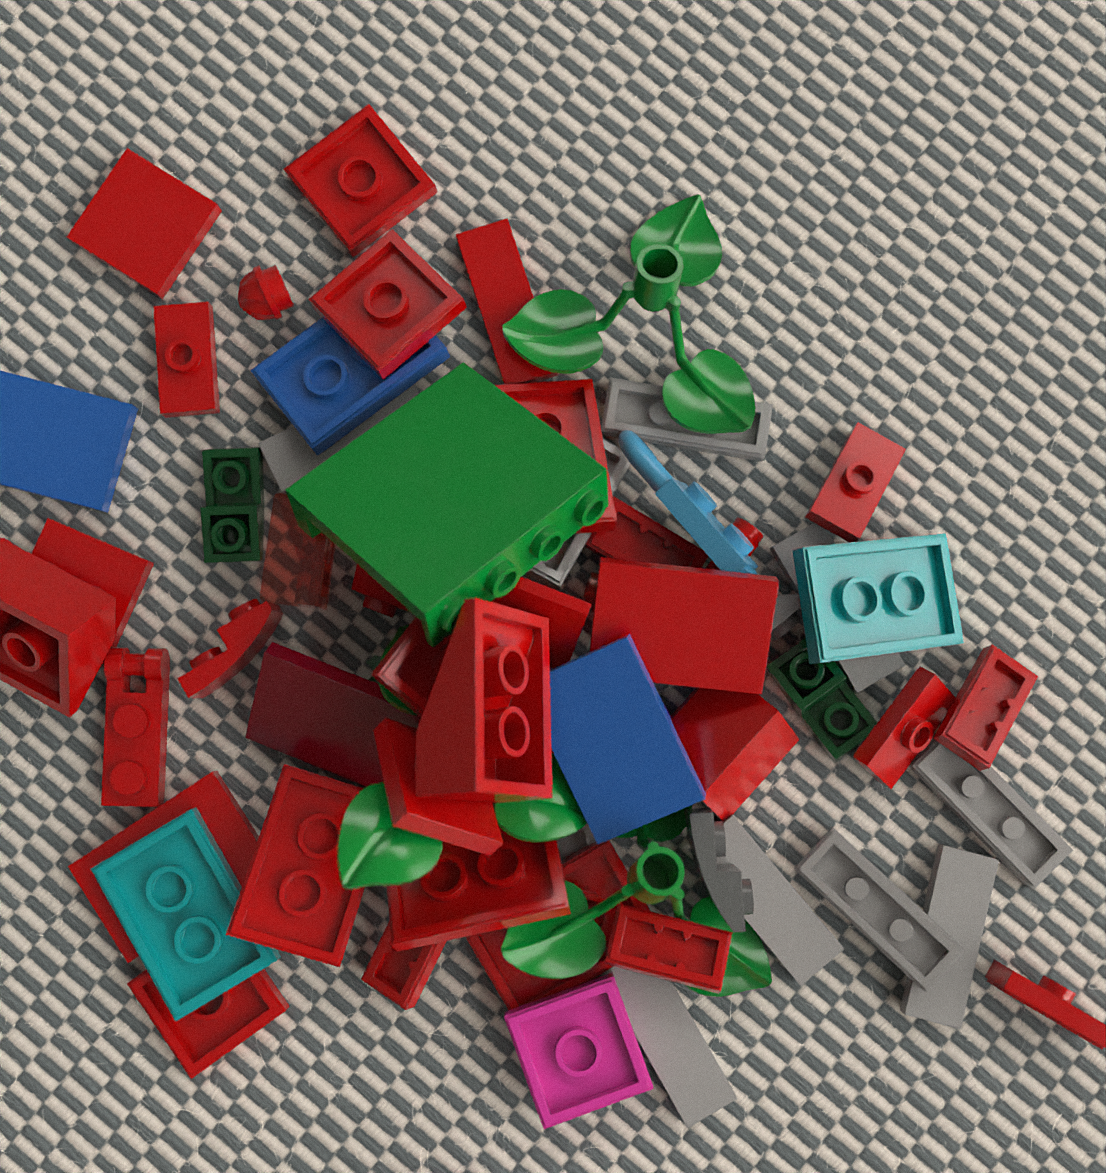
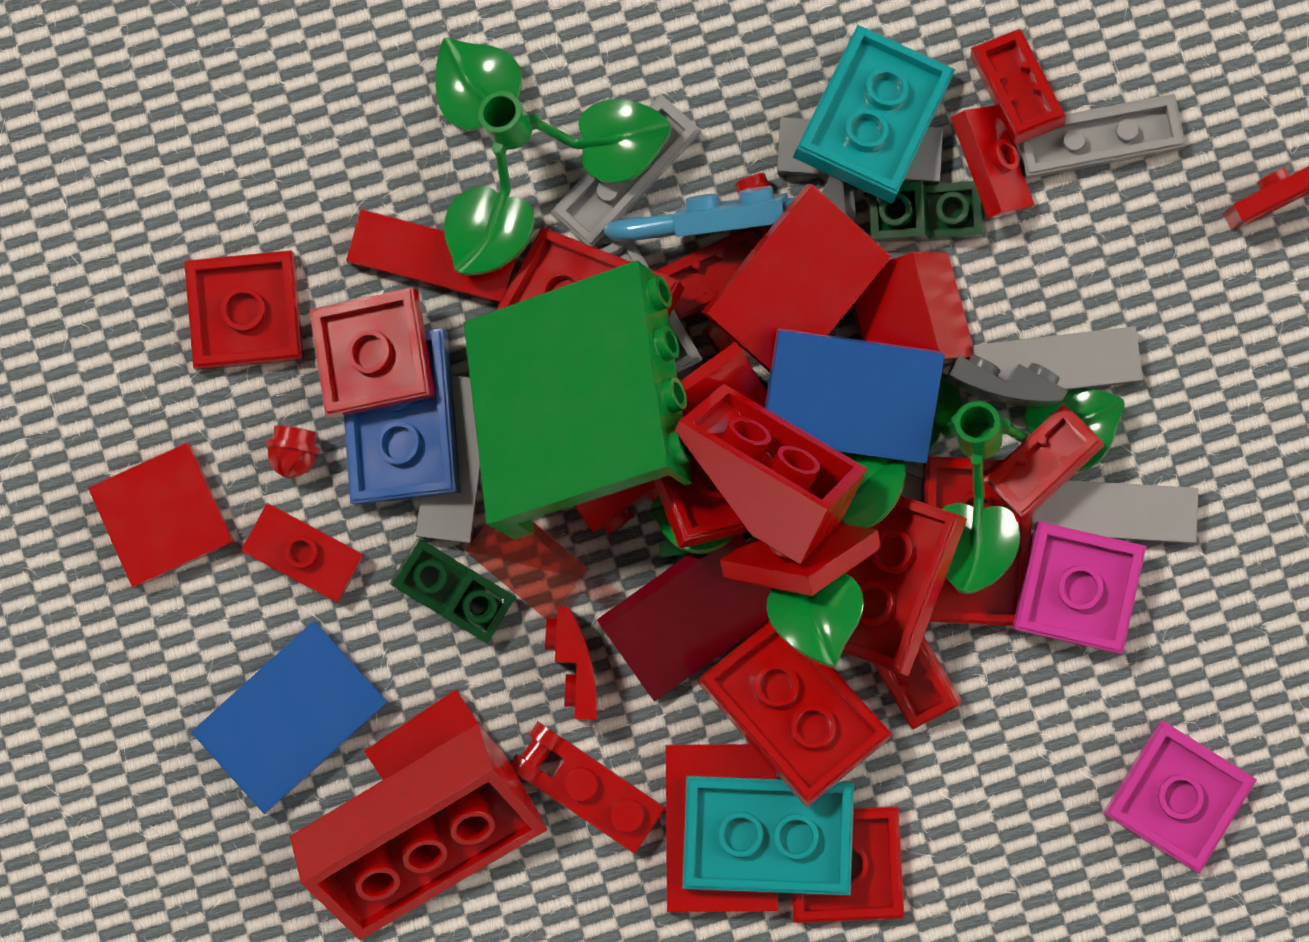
camera: 55 degrees left, 0 degrees up
(855, 483) = (769, 70): plate -> none
(879, 910) = (1121, 277): light grey tile -> none
(959, 904) = (1179, 236): light grey tile -> none

